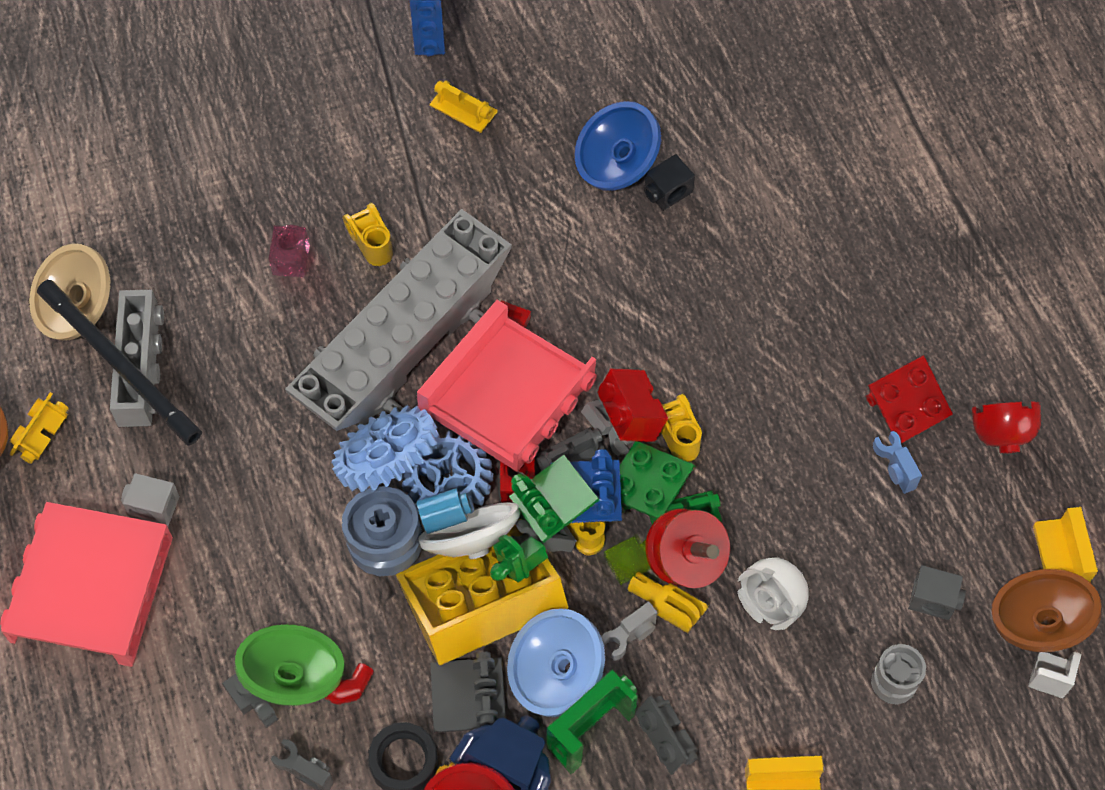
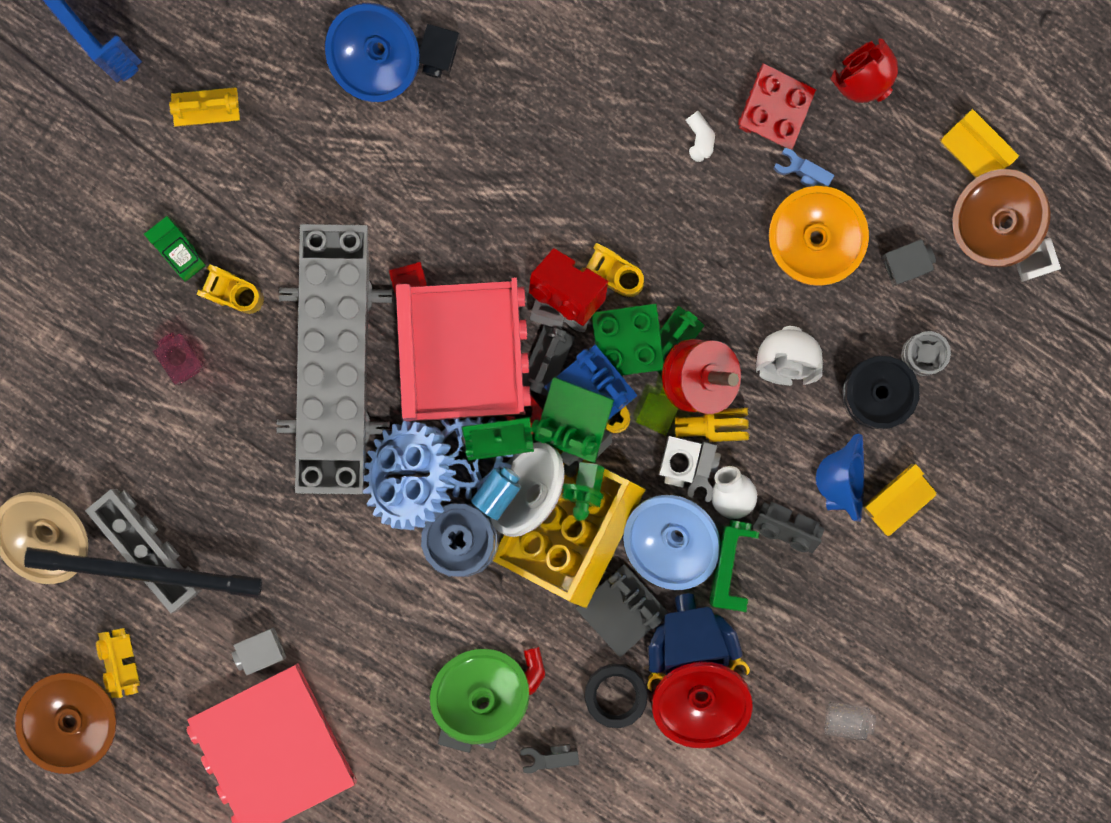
camera: 45 degrees left, 25 degrees up
(356, 176) = (175, 248): none -> green leg
(480, 467) = (498, 439): none -> green hinge
(620, 593) = (690, 450): none -> white brick
(642, 663) = (733, 493): none -> white piece
(748, 725) = (842, 478): none -> blue hat
(830, 384) = (704, 138): none -> white arm
(853, 671) = (899, 399): none -> black wheel
(874, 494) = (842, 232): none -> light orange dish

